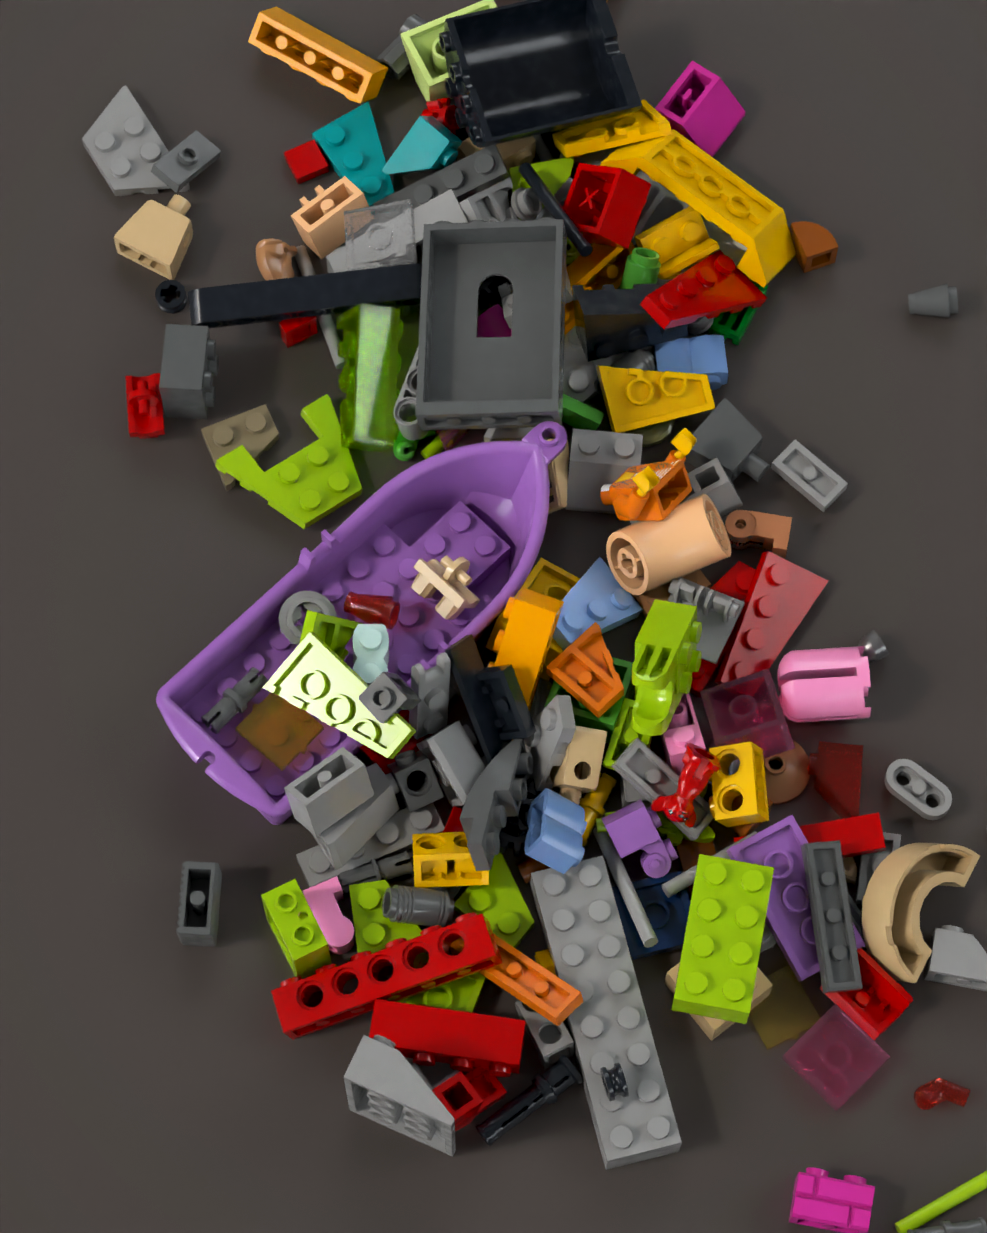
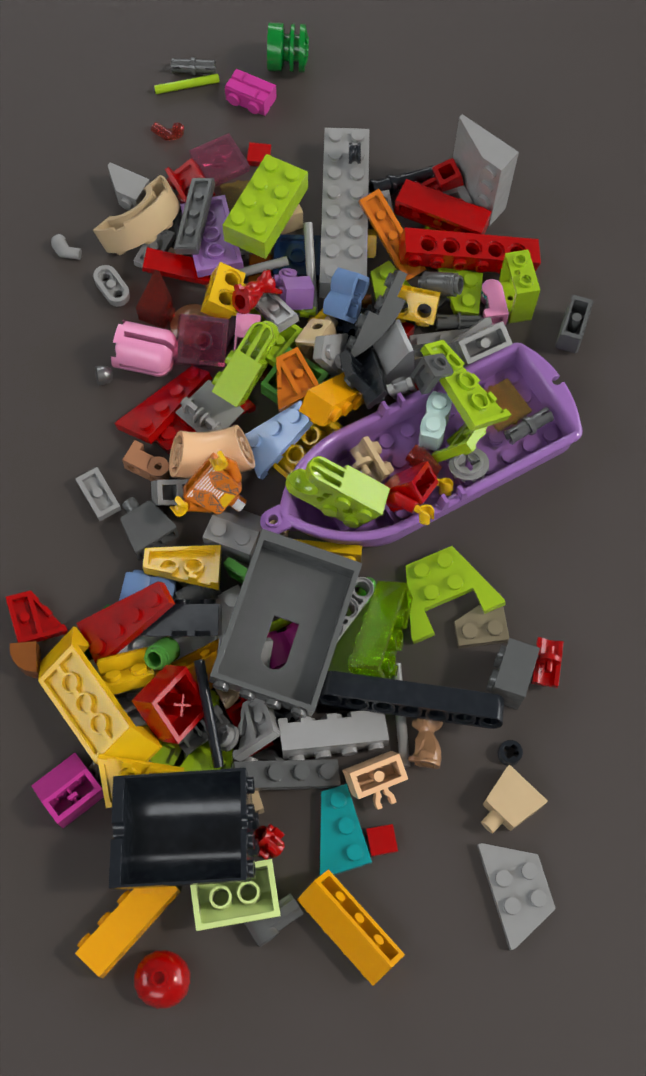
camera: 165 degrees left, 0 degrees up
(186, 161) = (477, 861): dark grey plate -> none
(379, 547) = (412, 489): none -> red torso
(380, 236) = (346, 731): clear tile -> none
(424, 148) = (290, 808): teal slope -> none
(472, 500) = (339, 491): none -> lime brick
(777, 1092) = (257, 152): none -> red tile
(826, 296) = (32, 619): none -> red wing

